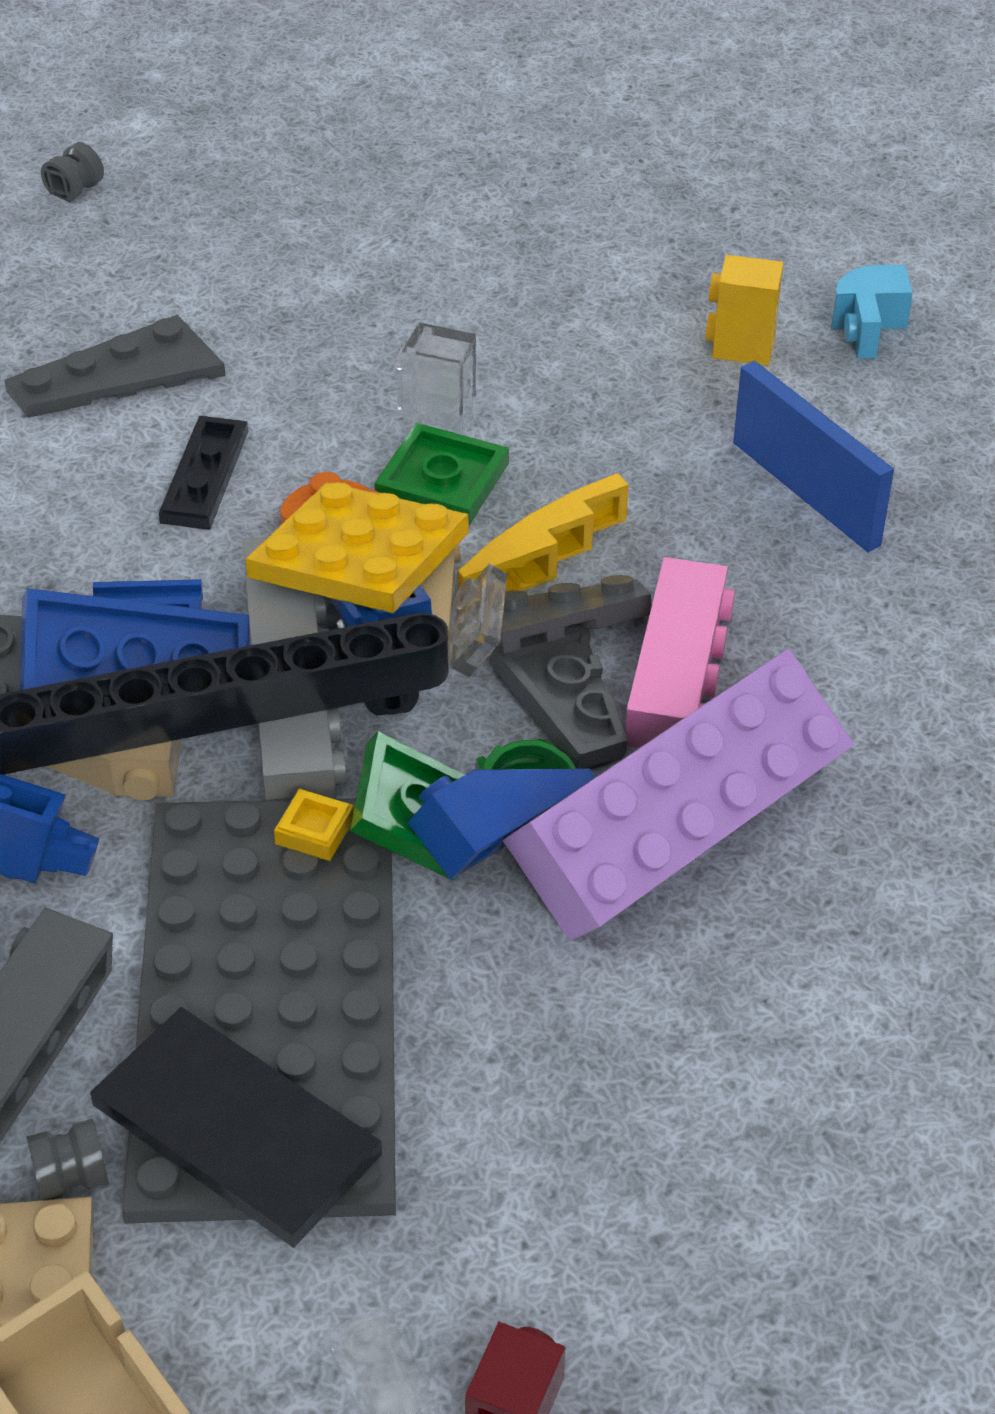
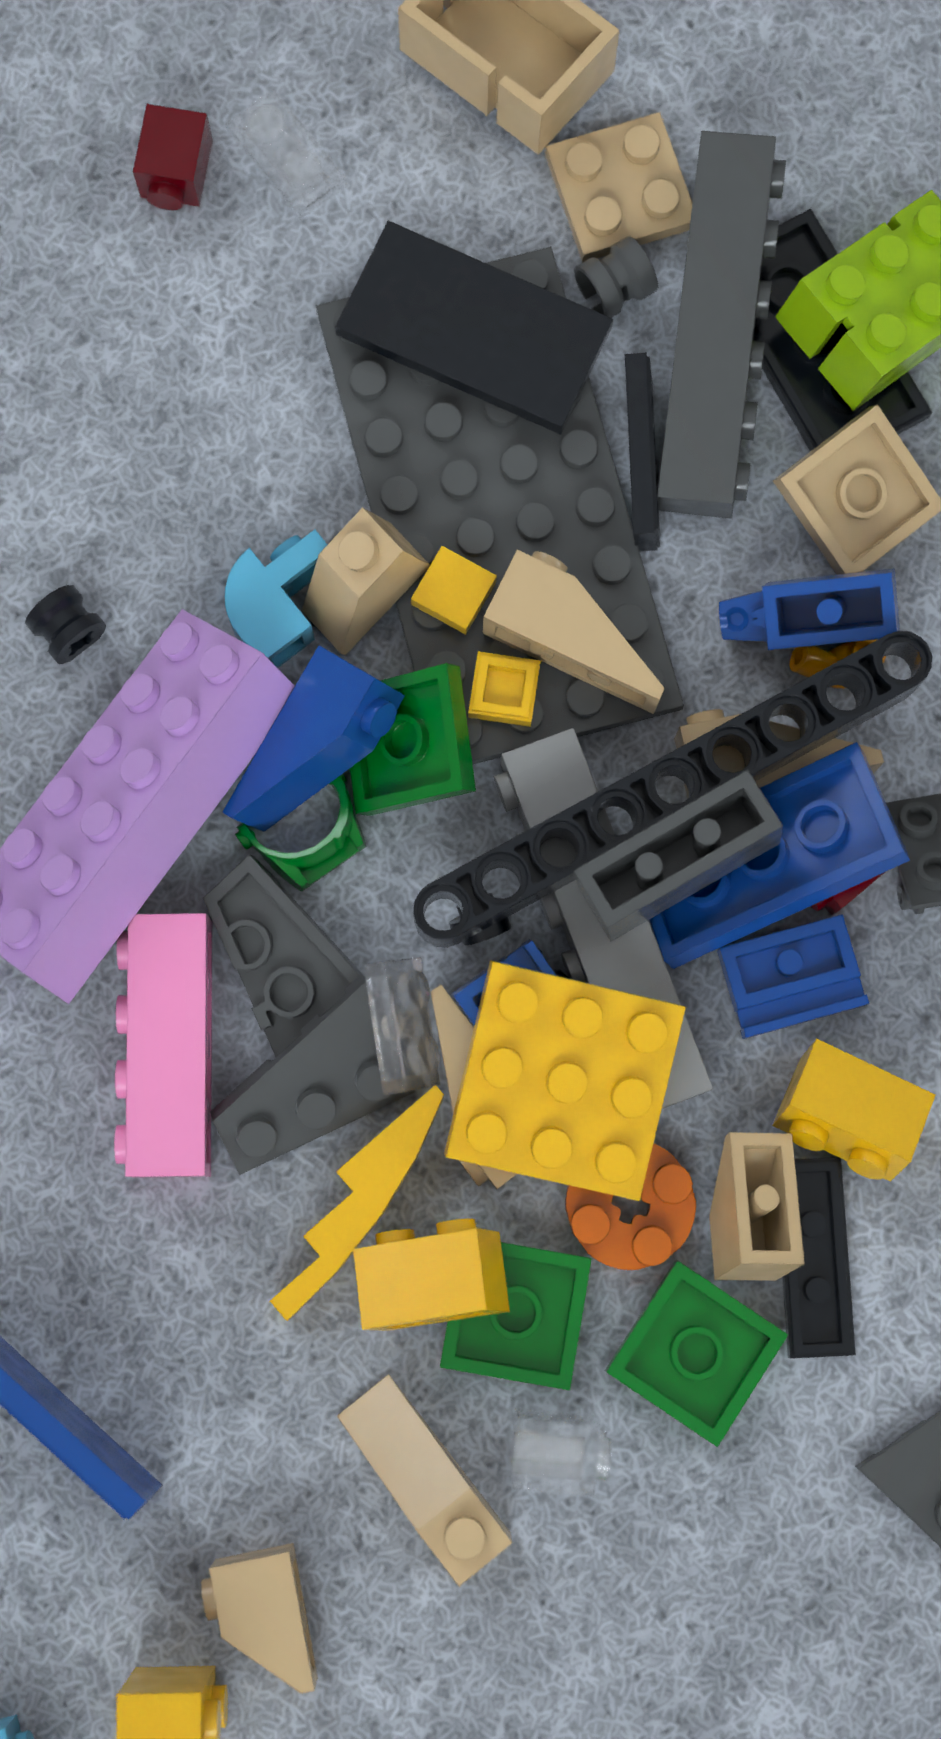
camera: 165 degrees right, 35 degrees up
(107, 998) = (642, 451): none -> black tile
(138, 522) = (853, 1111): none -> yellow brick
(208, 622) = (679, 855): none -> dark grey brick
(240, 471) = (756, 1209): none -> tan slope
(252, 849) = (560, 624): none -> tan slope
(315, 432) = (696, 1353): none -> green plate
(334, 903) = (453, 590): none -> yellow tile
(413, 927) = (360, 579): none -> tan slope
(499, 473) = (430, 1277): none -> yellow brick
(514, 945) = (261, 602): none -> medium azure brick
(534, 397) = (425, 1480): none -> tan slope
(672, 361) = (263, 1612): none -> tan slope
(717, 962) = (65, 624): none -> black wheel

